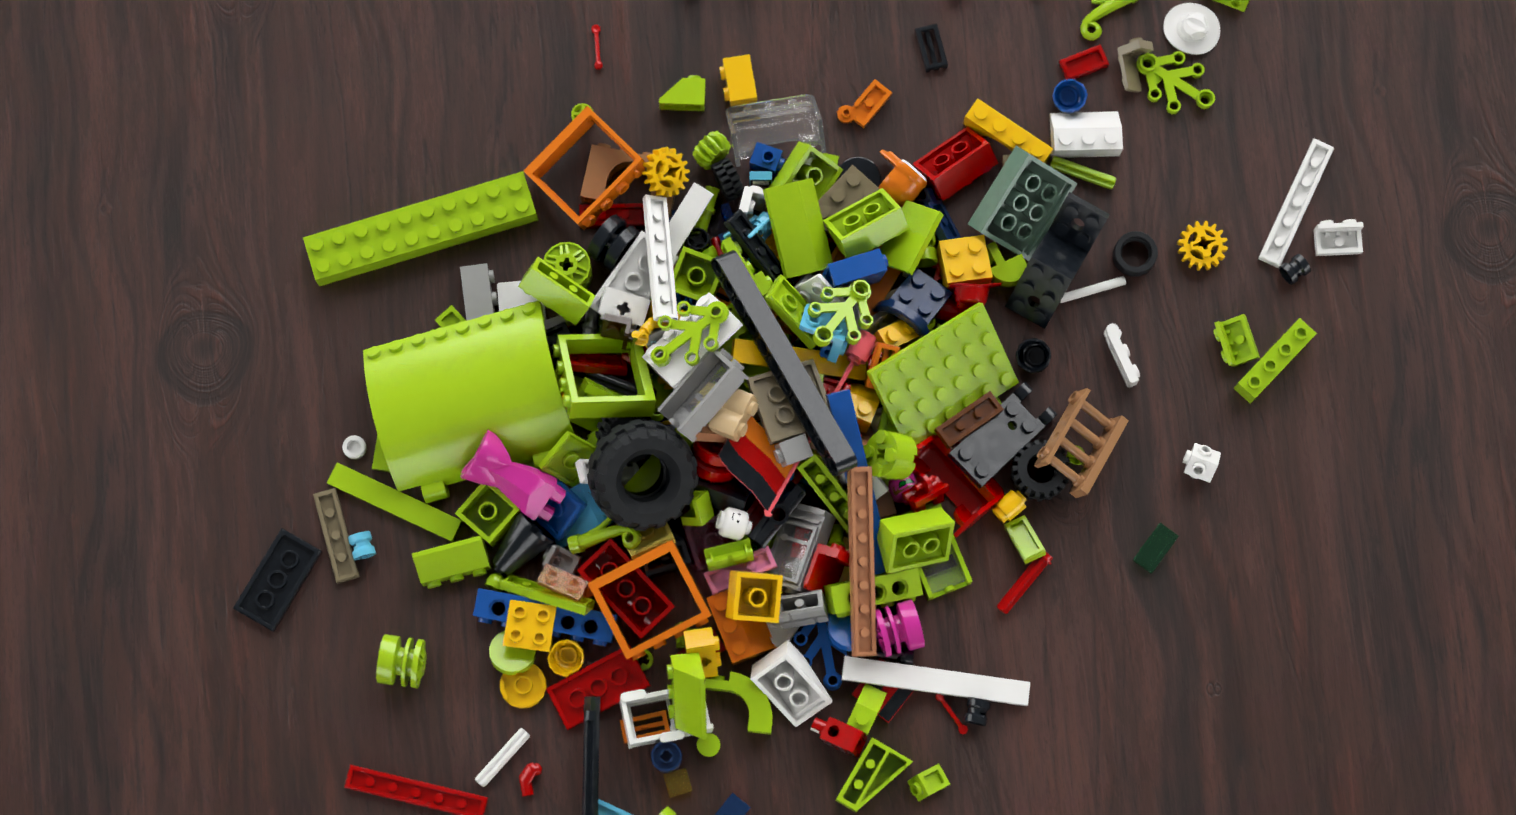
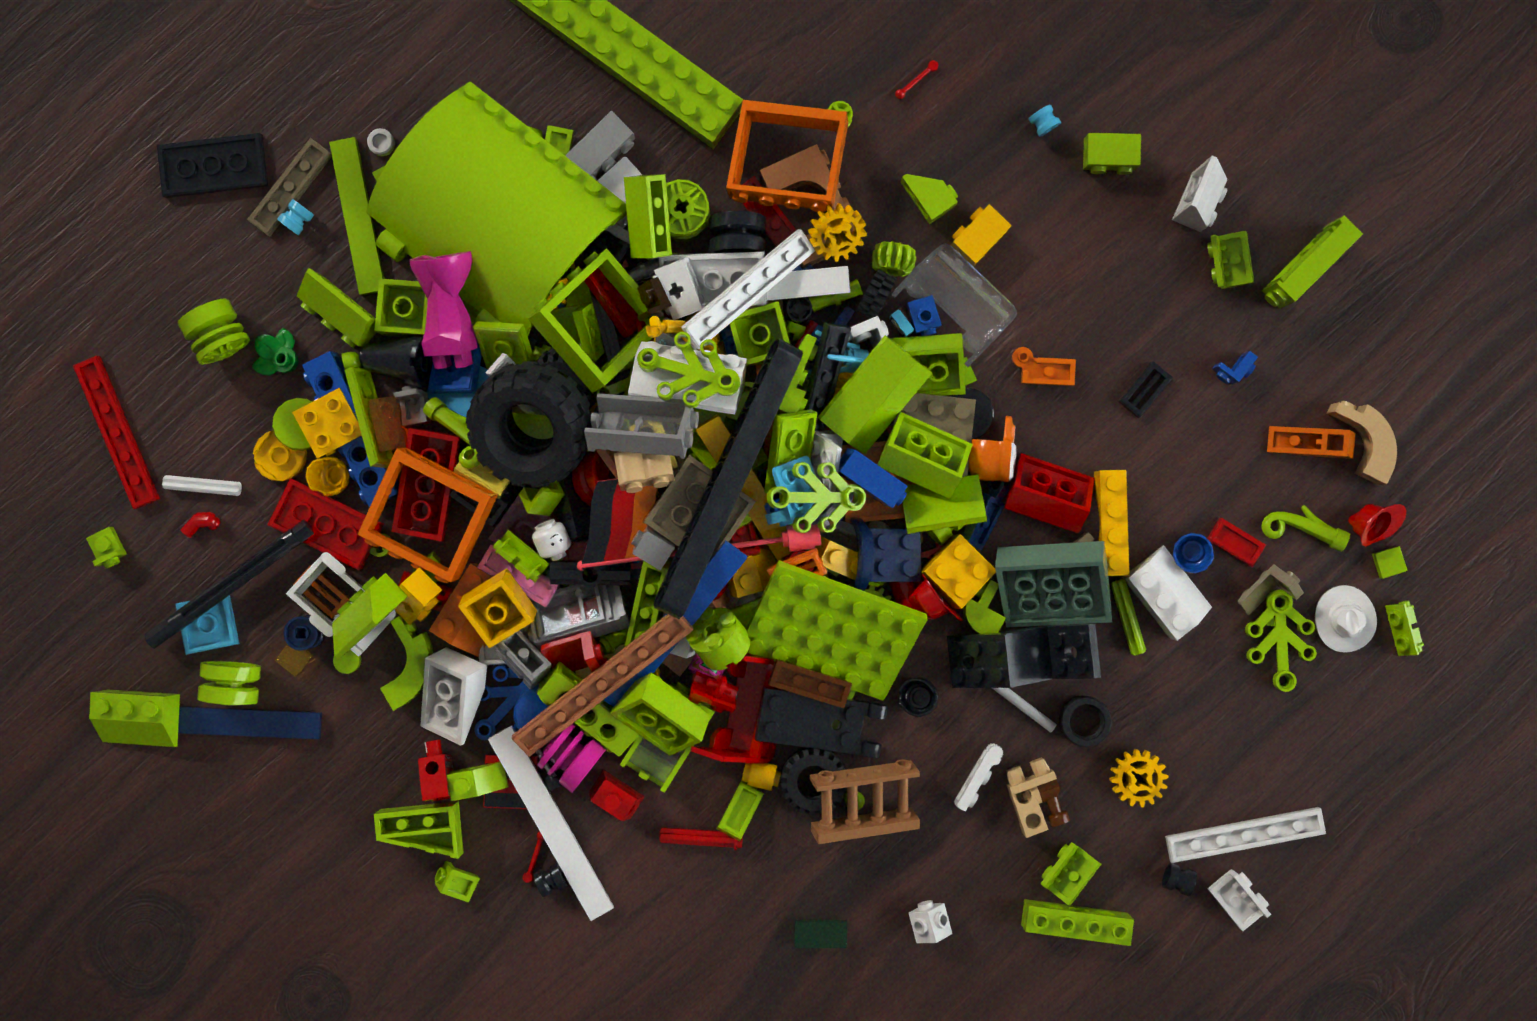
camera: 55 degrees right, 10 degrees up
(444, 635) = (272, 352): none -> green plate
(948, 620) = (615, 796): none -> red torso
(1159, 328) = (1030, 792): none -> tan hips

